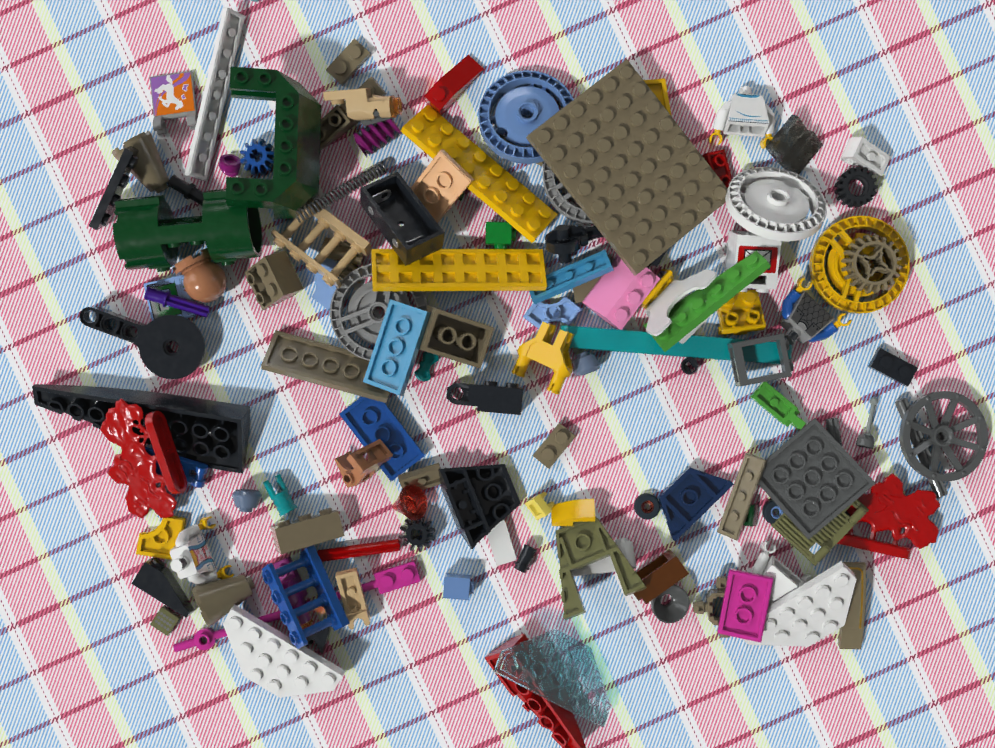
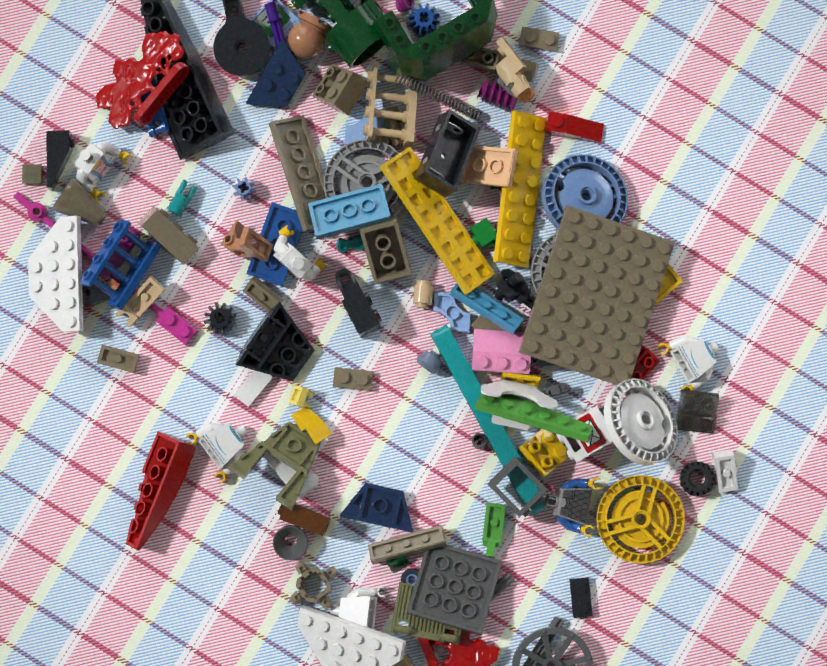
camera: 65 degrees right, 5 degrees down
(162, 539) = (89, 131): yellow tile -> none
(226, 332) = (278, 79): none -> dark blue wing
(246, 499) = (163, 175): sand blue cone -> none
(303, 431) = (240, 184): none -> medium blue gear
(359, 550) = (181, 287): red axle -> none
(392, 652) = (118, 358): none -> dark tan plate
(407, 430) = (294, 260): none -> white torso
(411, 502) = (240, 298): clear red hat -> none
(457, 586) = (199, 375): medium blue brick -> none
(518, 328) = (423, 294): none -> tan brick
(525, 558) = (253, 412): black pin -> none
(536, 608) = (221, 444): none -> white torso
(549, 354) = (419, 327): yellow connector -> none
(558, 671) = (185, 491): clear light blue plate -> none
(654, 506) = (352, 472): black wheel -> none
(688, 263) = (556, 389): none -> dark grey piece
(745, 605) = (326, 596): dark pink tile -> none
(866, 439) = (512, 612): hinge -> none
(880, 249) = (642, 514): dark tan gear -> none

